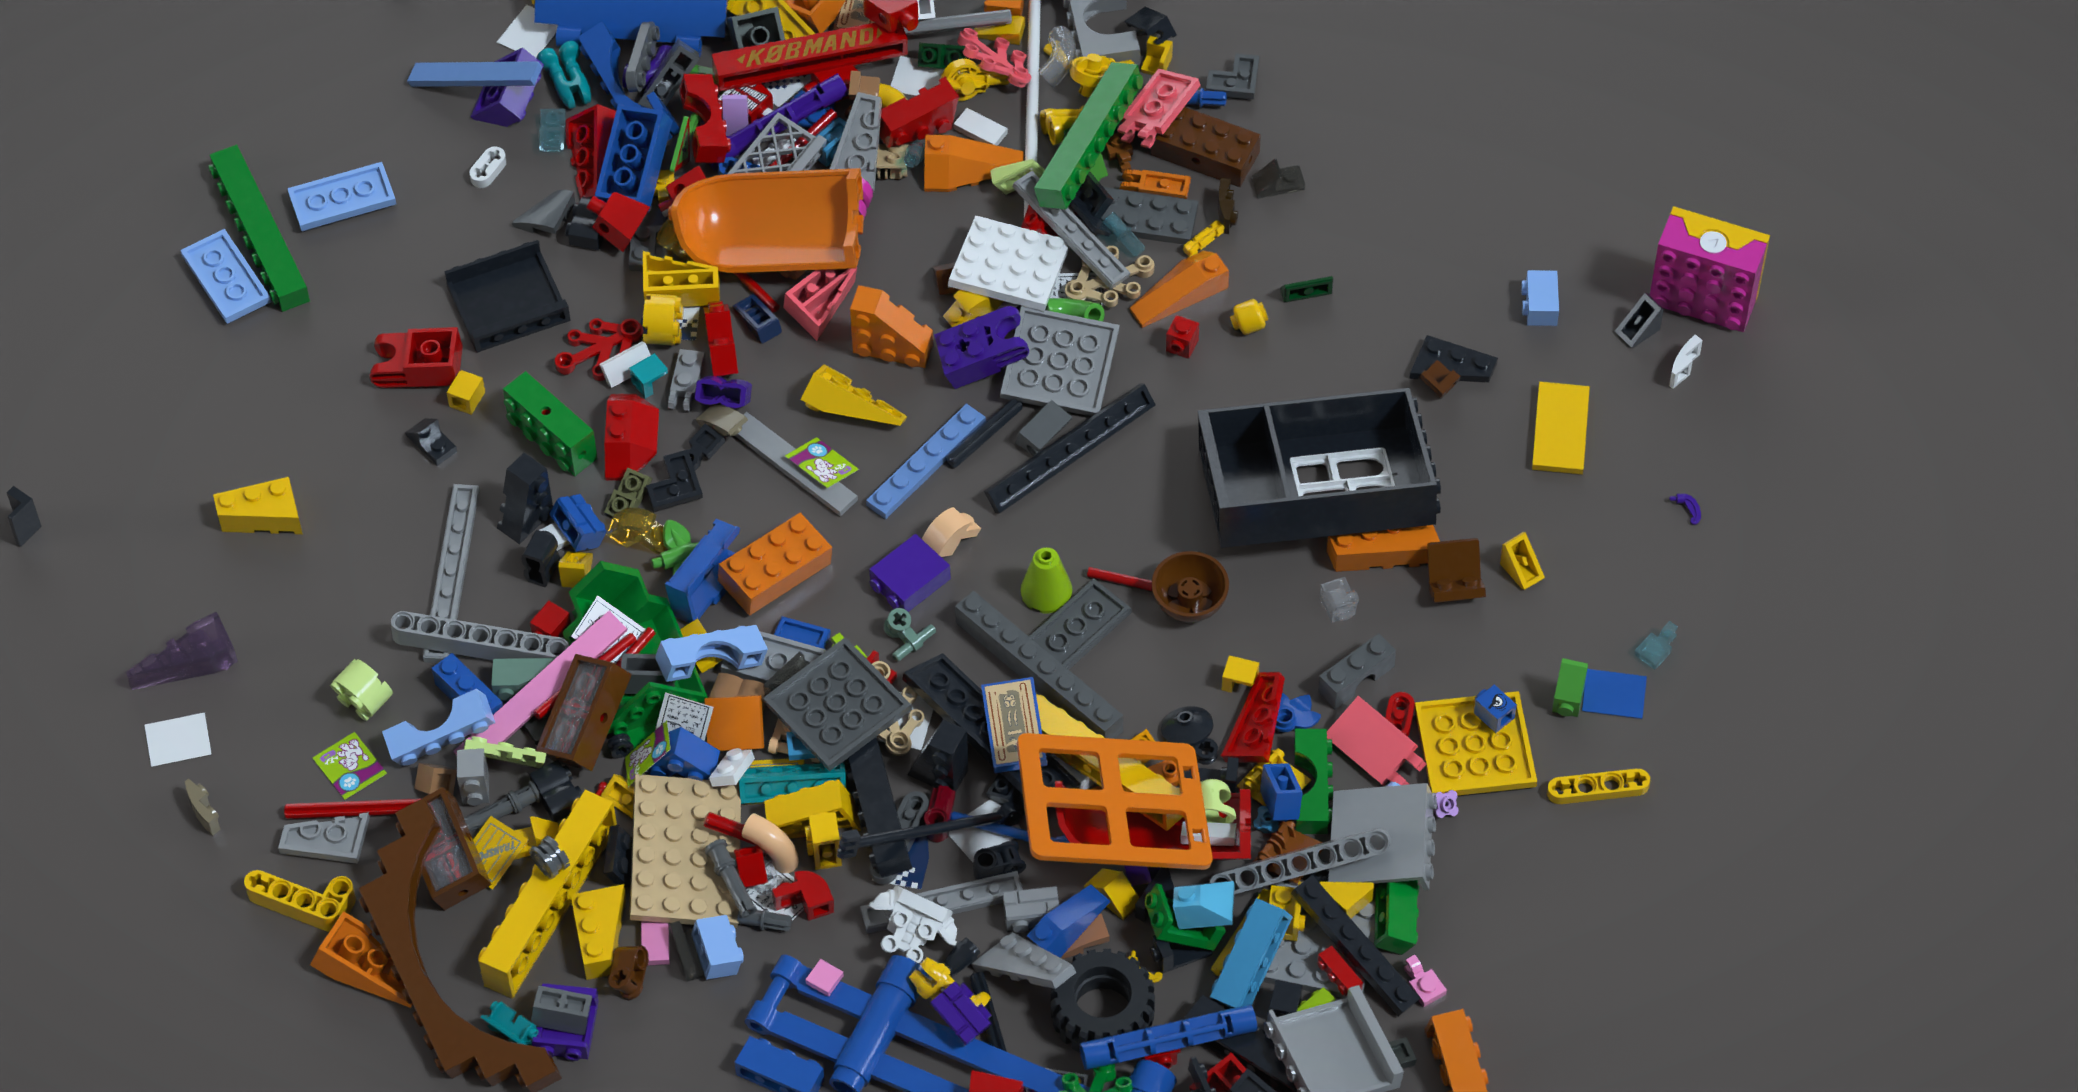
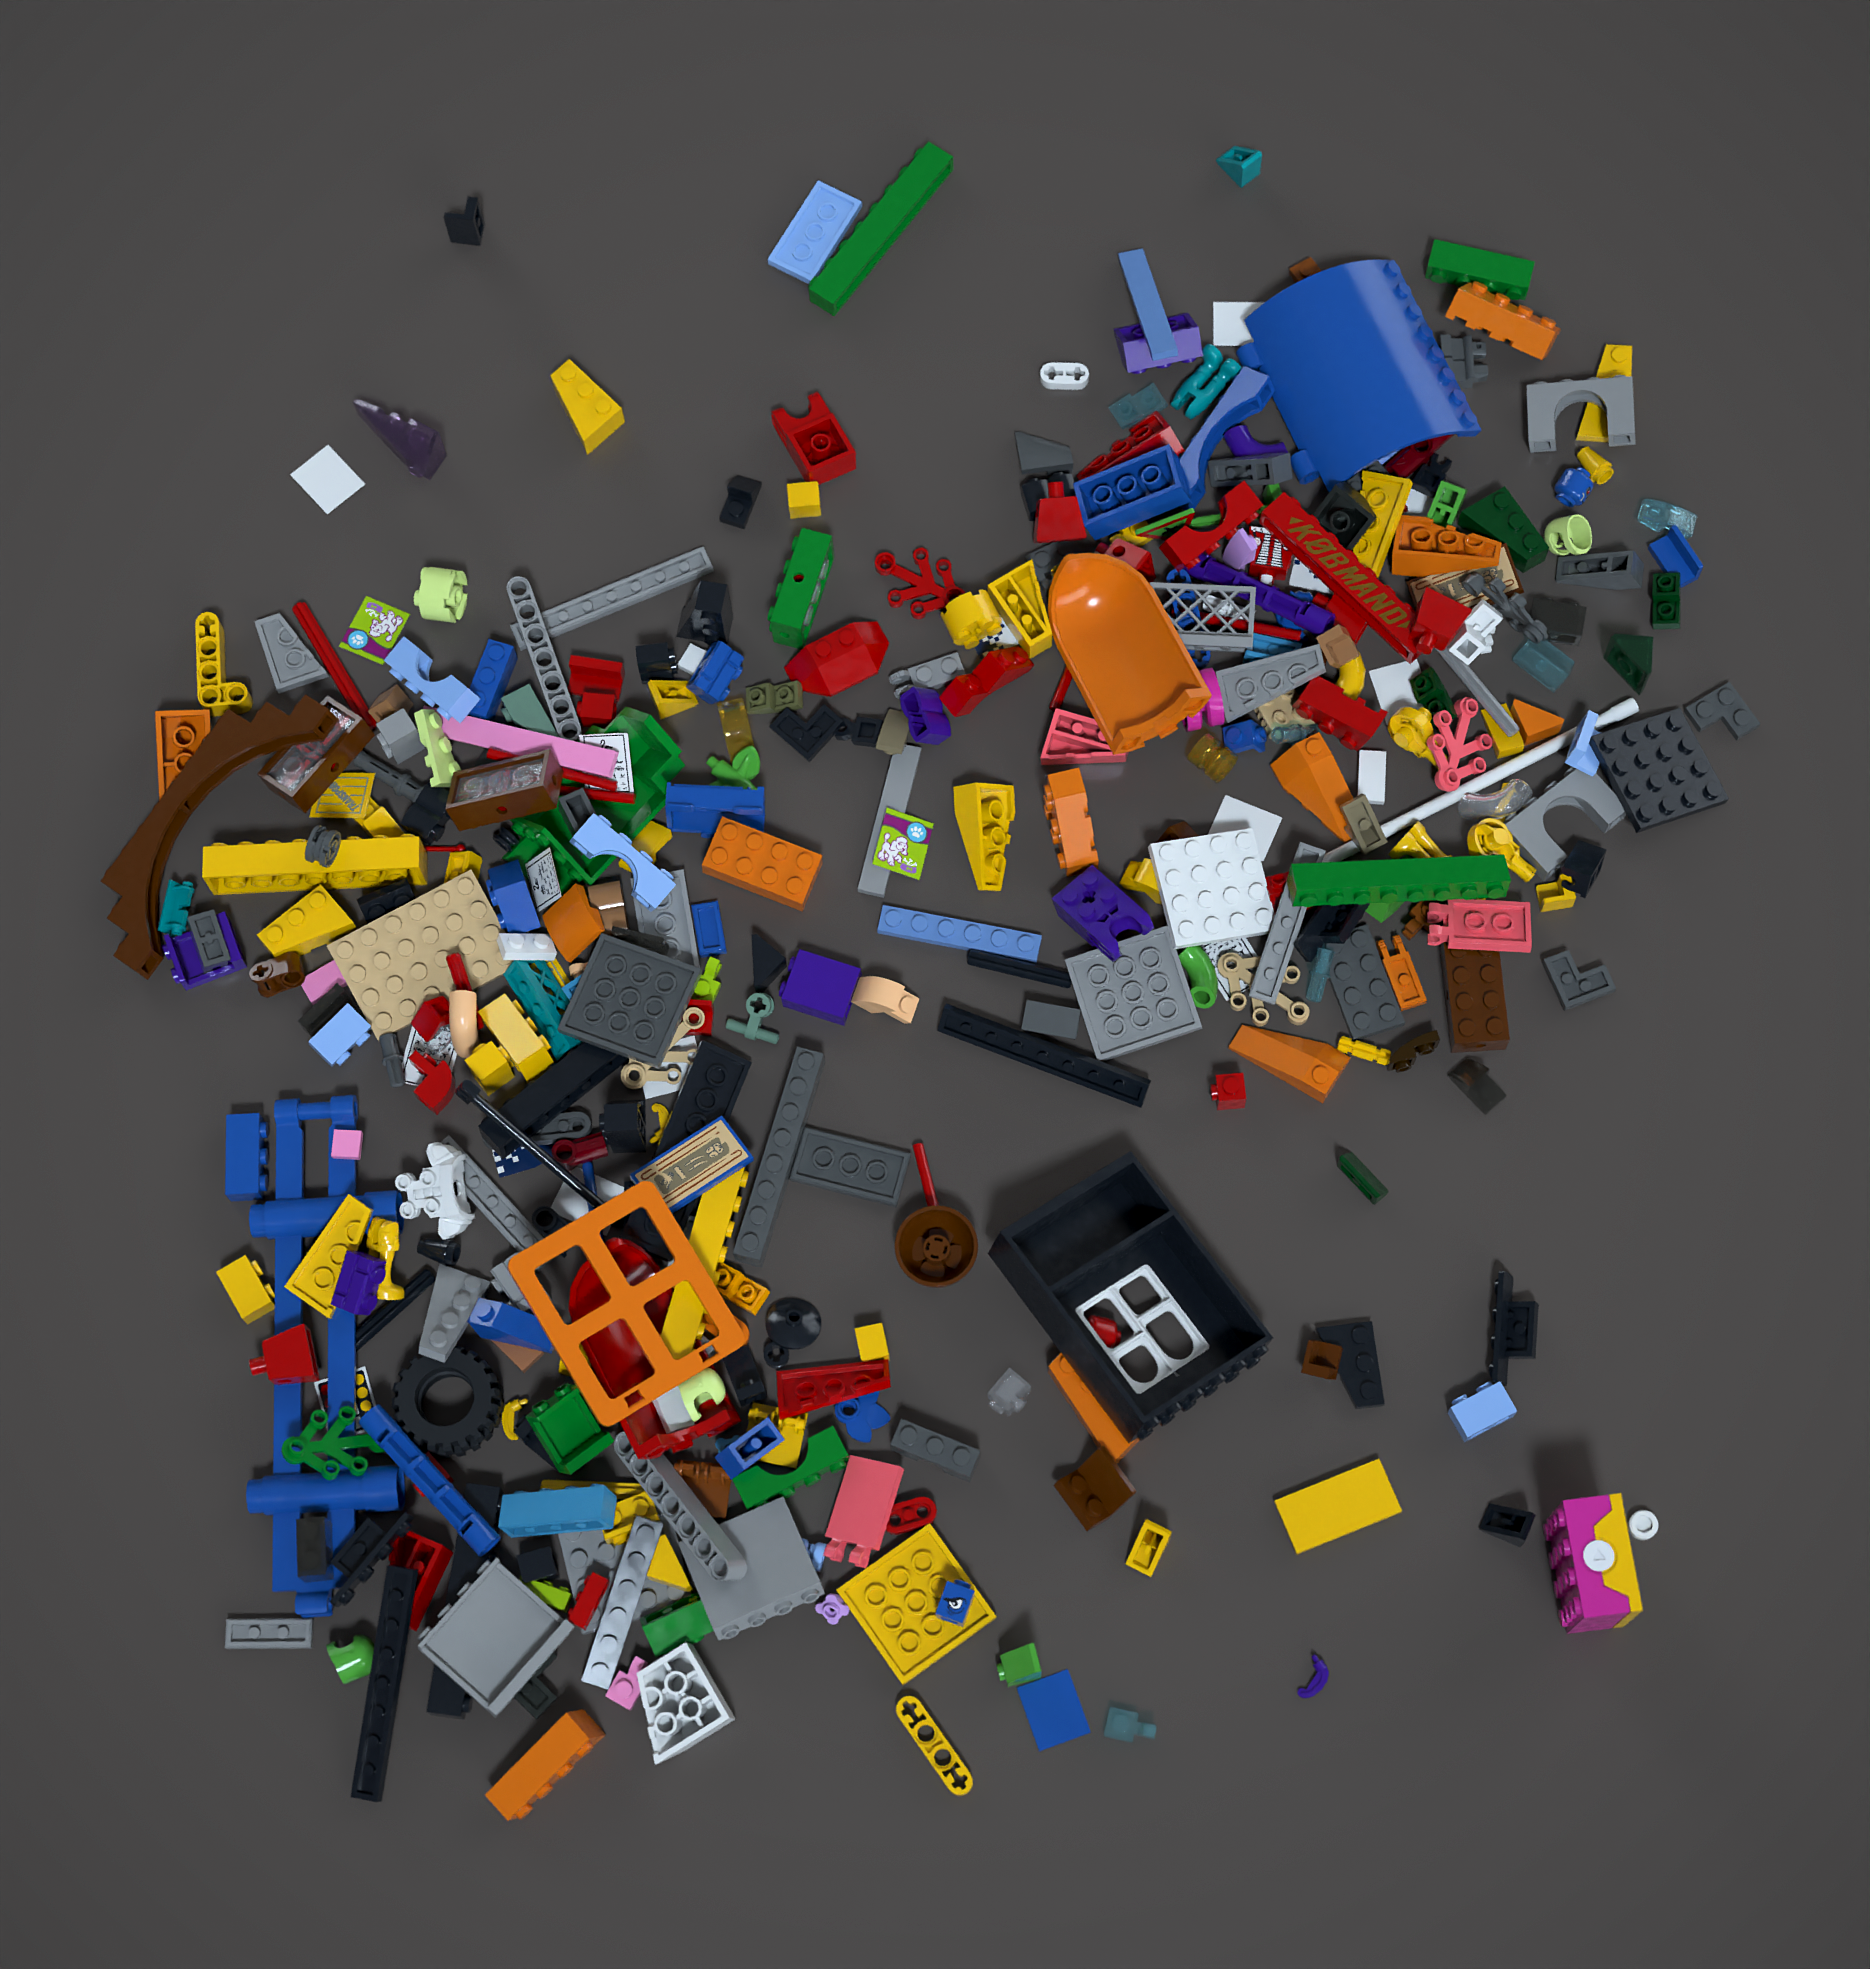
camera: 65 degrees right, 15 degrees up
(200, 804) = (266, 532): dark tan slope -> none
(341, 196) = (957, 275): light blue plate -> none
(506, 296) = (930, 474): black panel -> none
(516, 610) = (595, 676): none -> red panel
(617, 368) = (912, 616): white tile -> none
(641, 56) = (1252, 433): dark grey plate -> none
(646, 372) = (910, 639): teal panel -> none
(647, 753) = (499, 867): sticker -> none
(657, 104) = (1205, 489): blue tile -> none
(726, 867) = (414, 999): dark grey pin -> none
(753, 318) = (1025, 713): dark blue slope -> none
(860, 604) = (766, 963): none -> black slope
(890, 193) = (1244, 737): none -> blue bracket
(895, 218) = (1210, 755): none -> clear yellow wheel
(925, 1033) = (320, 1269): none -> yellow wing
(954, 230) = (1239, 815): none -> white sticker
(1005, 176) = (1322, 837): yellowish green slope -> none
(1022, 143) = (1362, 824): none -> dark tan slope
(1046, 582) = (877, 1116): lime cone -> none
(1204, 905) = (586, 1441): medium azure slope -> none
(1210, 98) = (1535, 966): blue axle -> none
(1249, 316) = (1292, 1141): yellow head -> none
(1464, 940) = (681, 1702): none -> white wedge
(1489, 244) = (1514, 1329): none -> black bracket
(1683, 361) = (1478, 1590): white slope -> none

